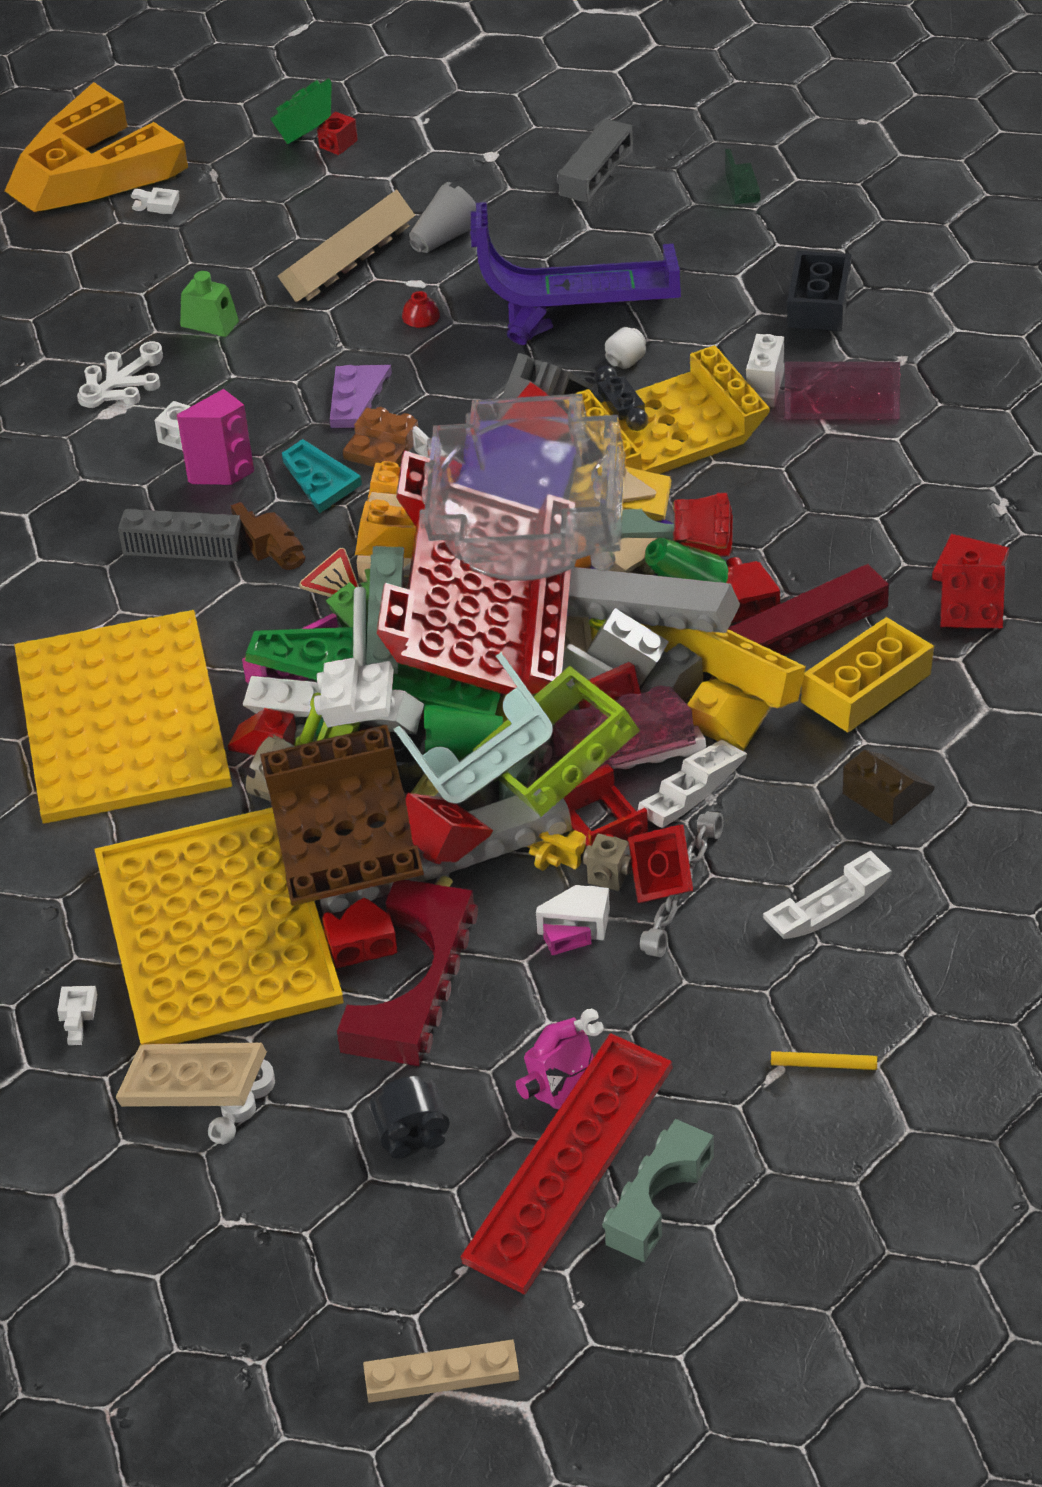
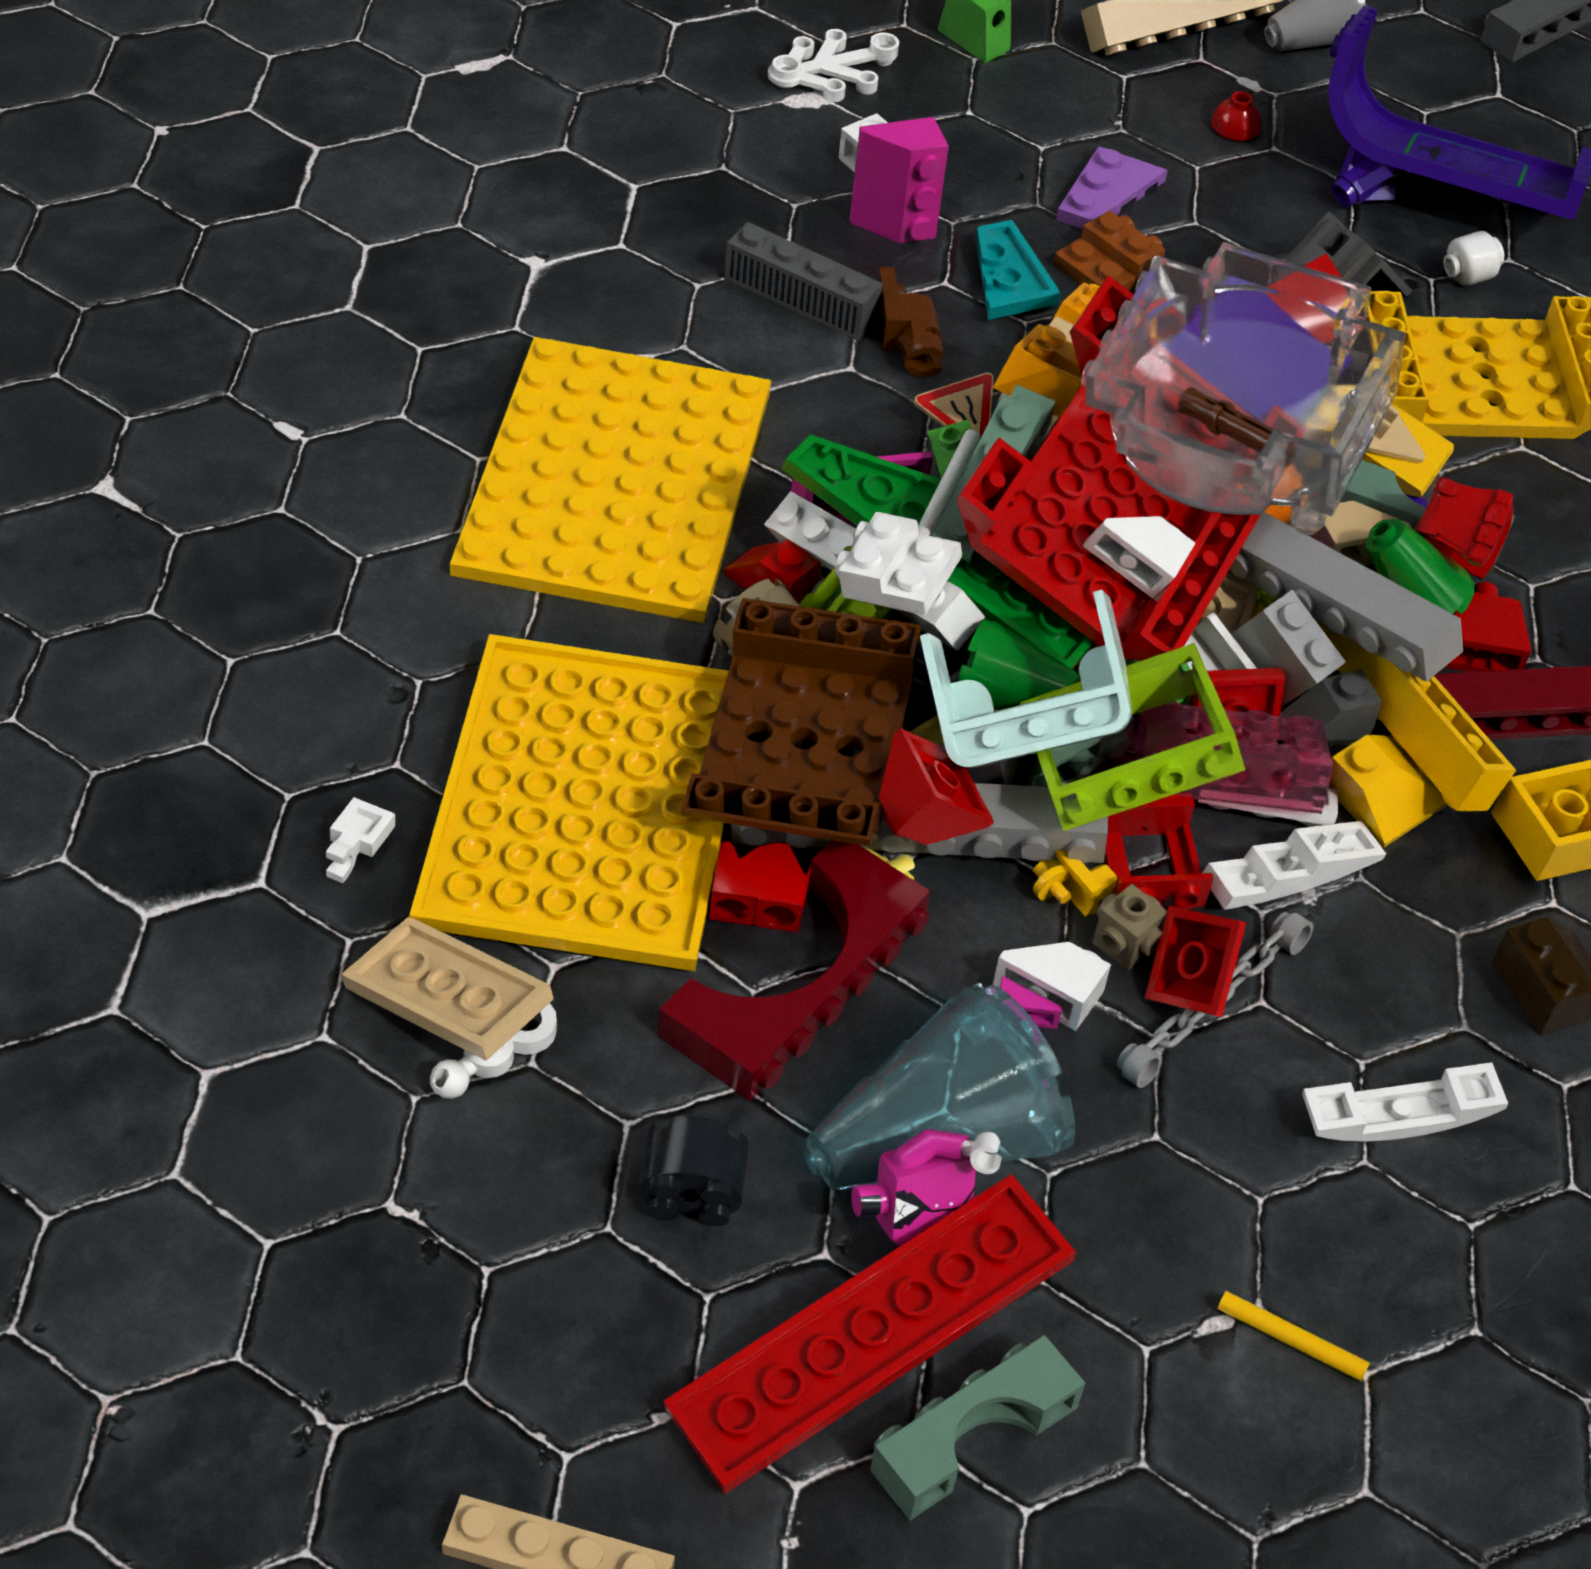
camera: 15 degrees right, 5 degrees up
(506, 621) = (1141, 550): none -> white slope
(519, 516) = (1224, 419): none -> reddish brown pin
(548, 982) = (963, 1072): none -> clear light blue cone
(621, 398) = (1438, 320): black plate -> none

